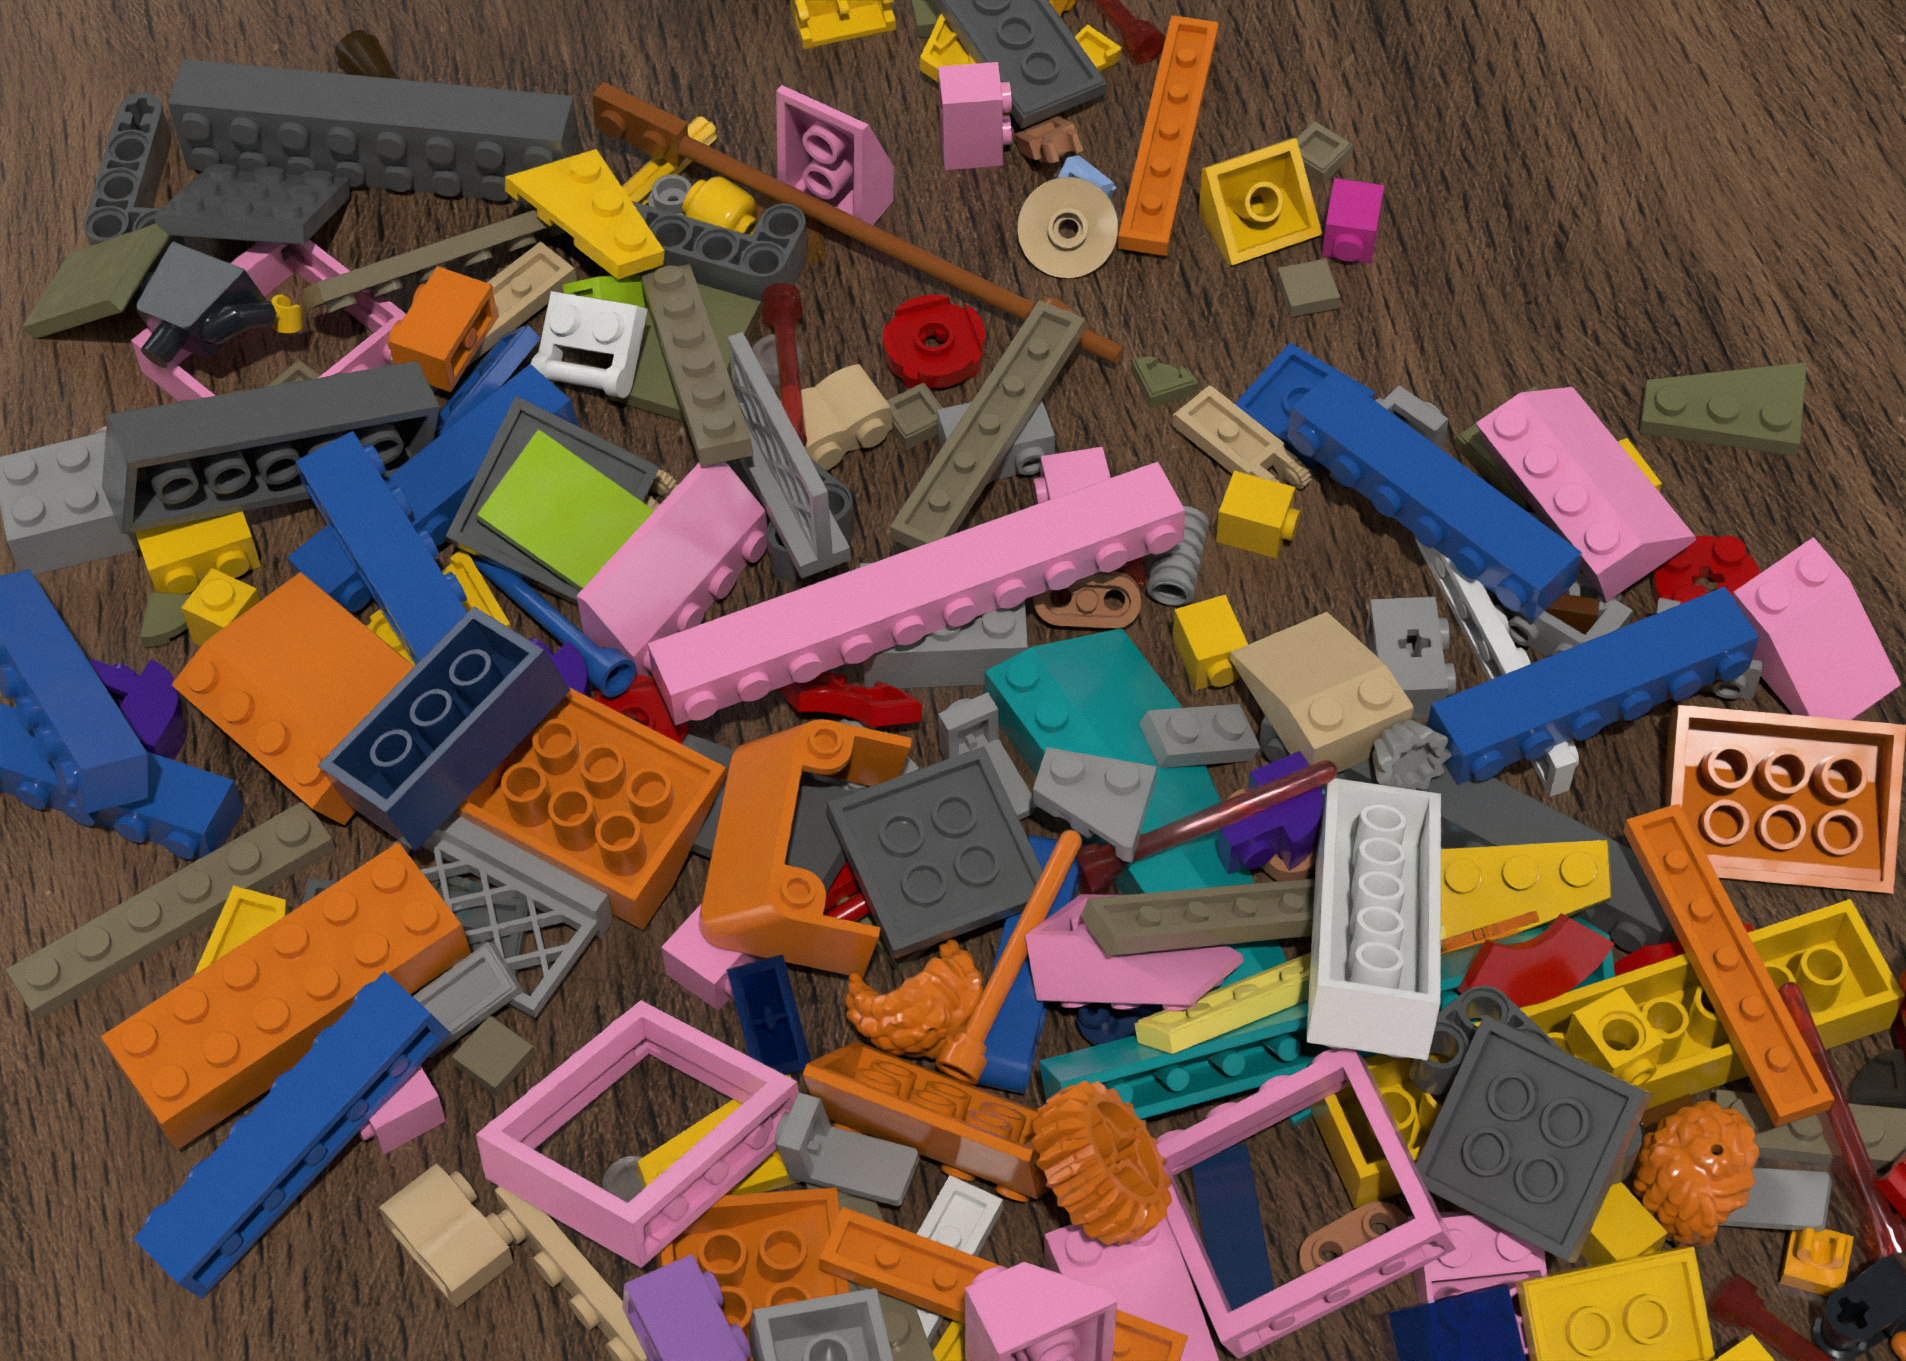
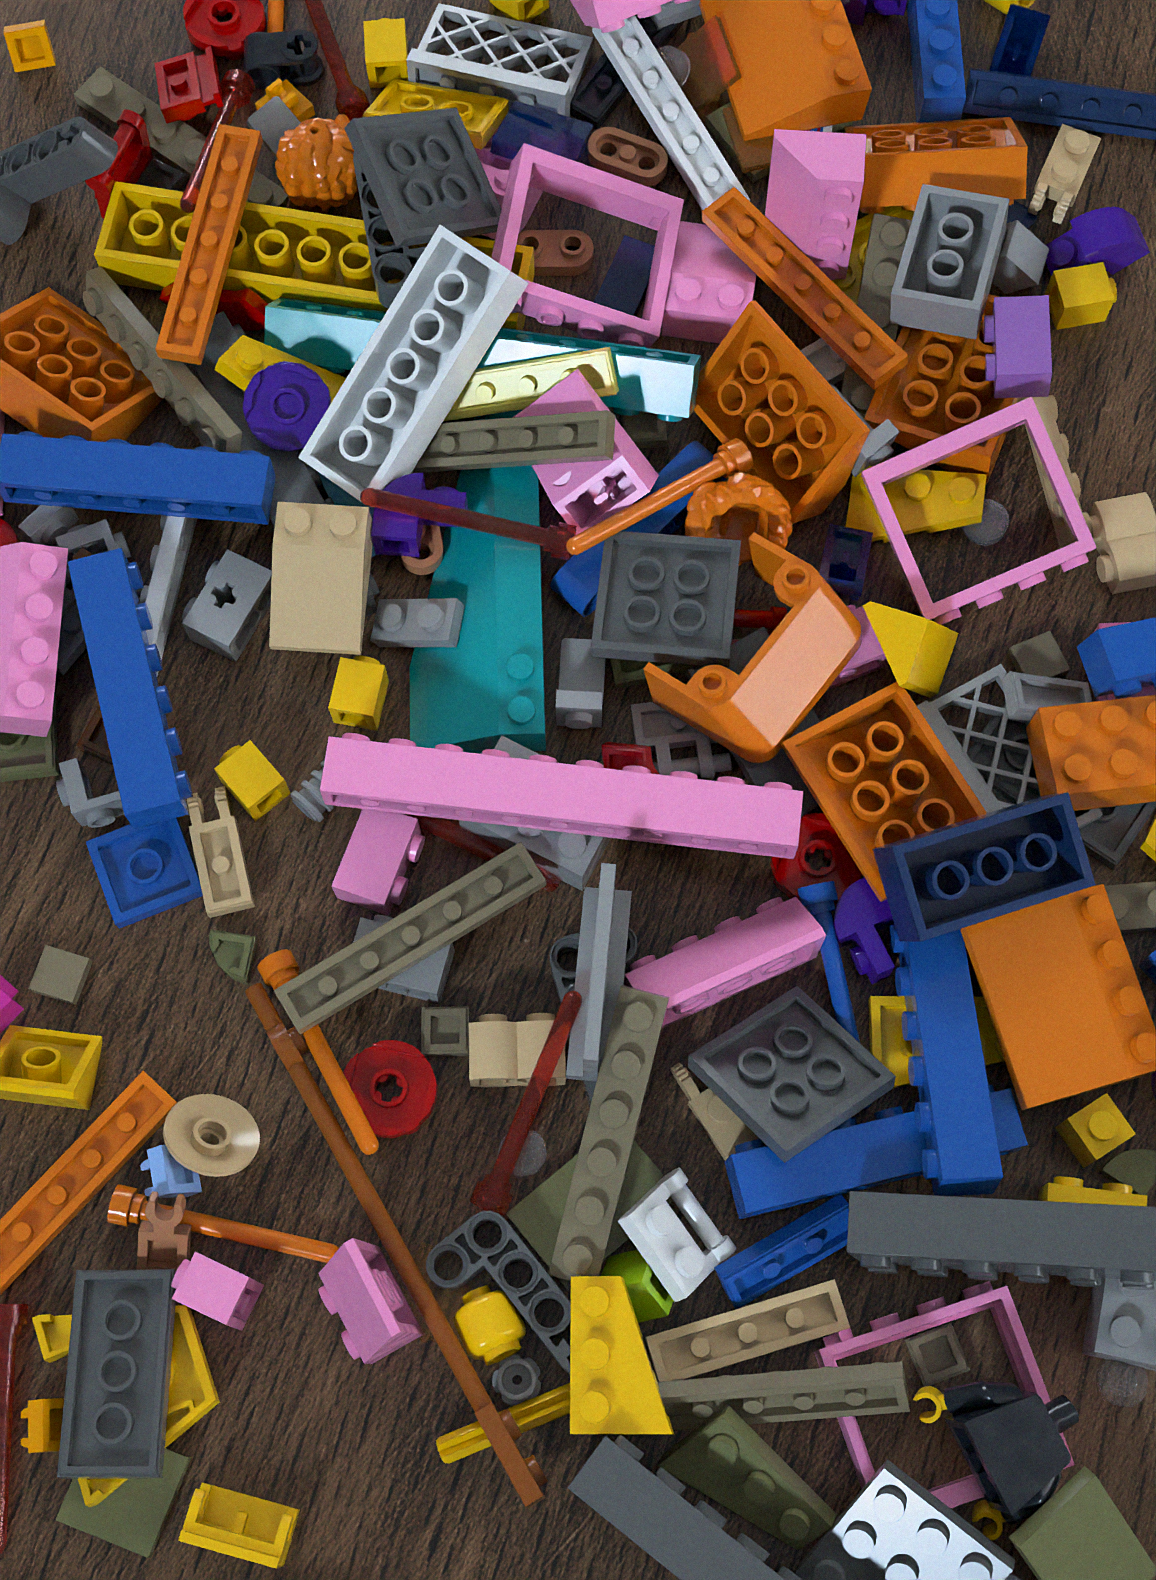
camera: 150 degrees left, 15 degrees up
(419, 214) = (749, 1478): none -> olive wing
(444, 326) = (798, 1312): orange brick -> none
(562, 511) = (785, 1040): lime tile -> none
(648, 957) = (913, 647): none -> yellow slope
(1097, 796) = (532, 575): light grey wing -> none
(1101, 376) = (279, 969): none -> orange piece
(1101, 1163) = (702, 297): orange gear -> none
(1102, 153) = (129, 1207): none -> orange piece
(1409, 755) = (300, 489): light grey piece -> none
(1489, 931) = (339, 338): clear orange piece -> none
(1495, 839) = (285, 405): none -> dark purple tile
(1540, 967) = (328, 303): red tile -> none
(1615, 1019) = (323, 242): yellow brick -> none
(1755, 868) = (169, 377): none -> dark tan plate

